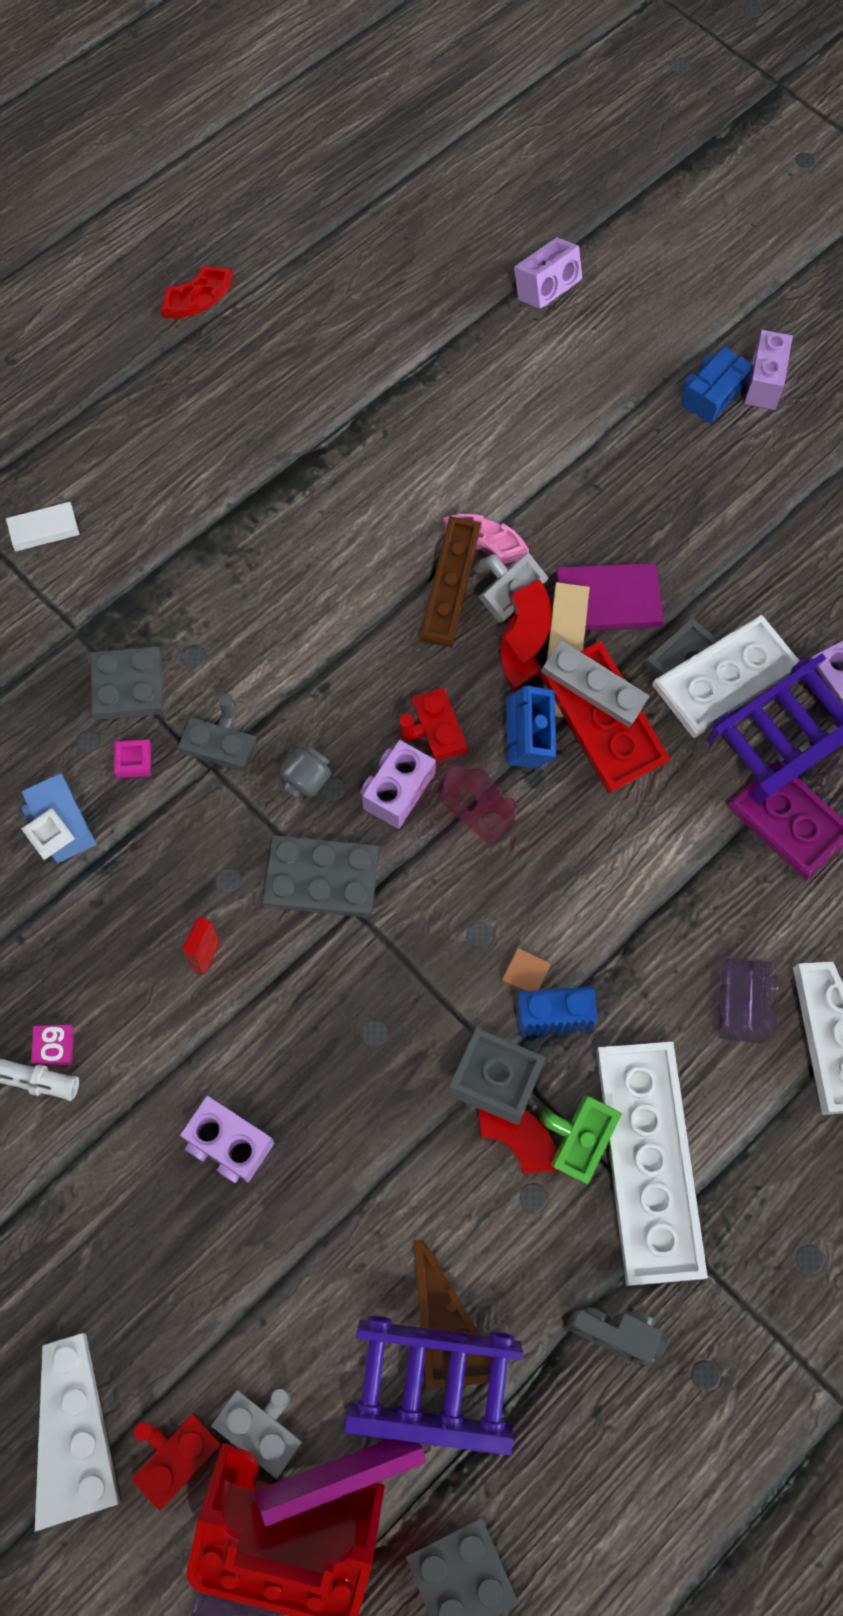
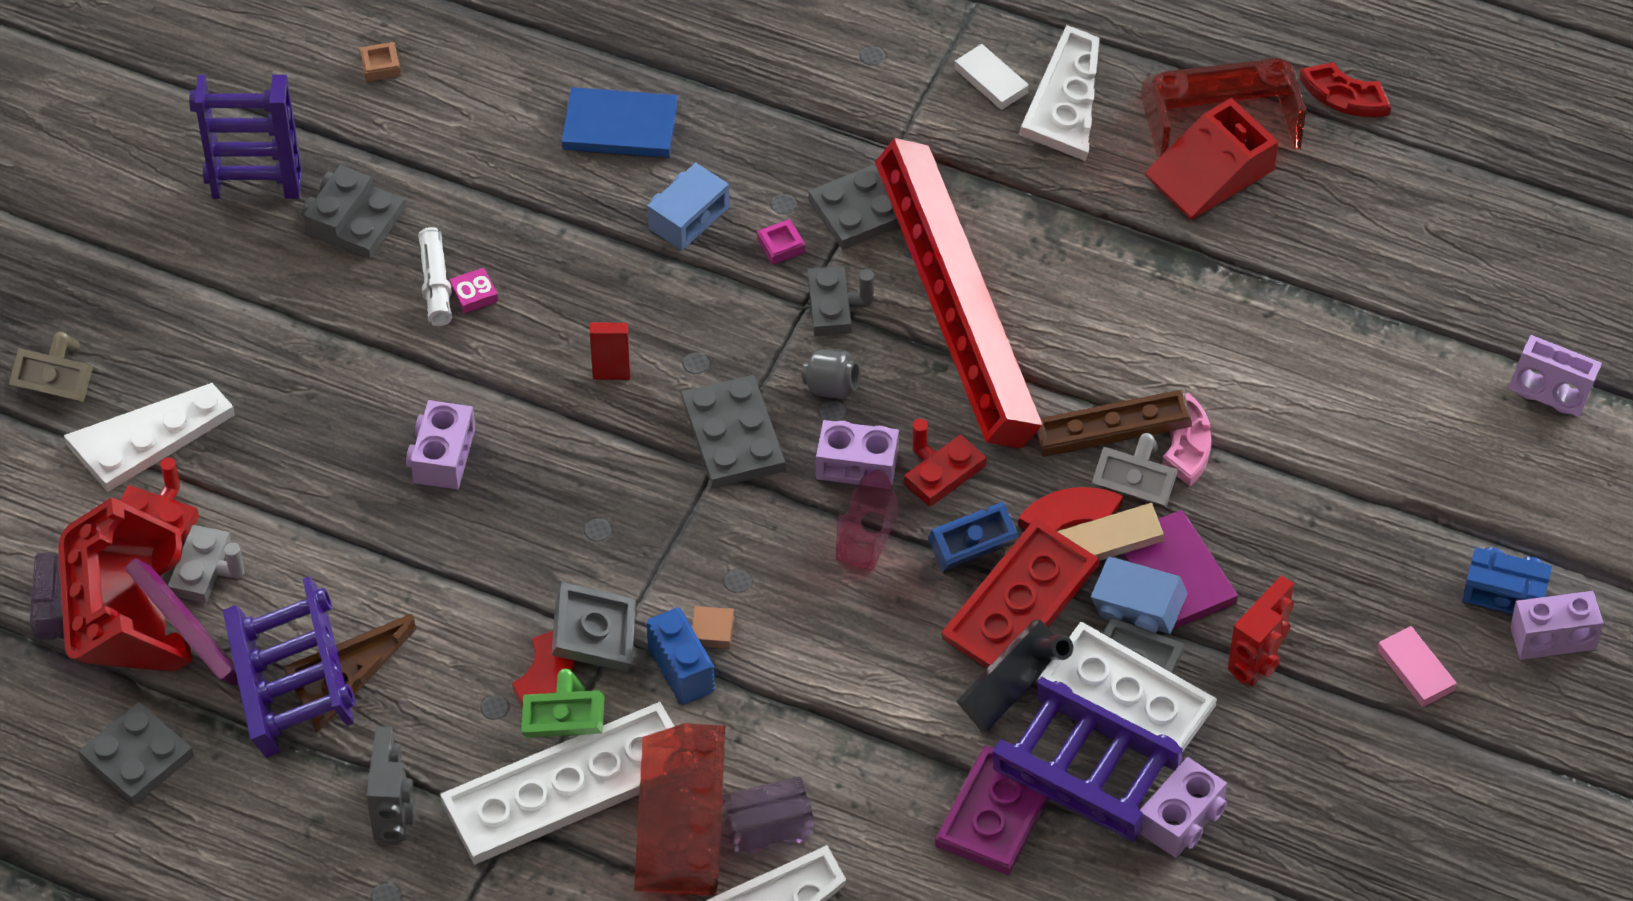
camera: 70 degrees right, 15 degrees down
(48, 833) = (662, 195): white tile -> none
(95, 480) = (1065, 96): none -> white wing
(140, 396) = (1217, 85): none -> clear red windscreen
(226, 402) = (1214, 159): none -> red slope
(266, 639) = (958, 294): none -> red brick
(532, 623) = (1087, 502): red tile -> none
(595, 683) = (1044, 566): light grey plate -> none
(638, 629) = (1139, 595): none -> medium blue brick
(673, 748) = (1013, 673): none -> black piece
(713, 559) = (1260, 634): none -> red plate
(728, 1071) = (680, 810): none -> clear red slope
(762, 474) = (1417, 666): none -> bright pink tile

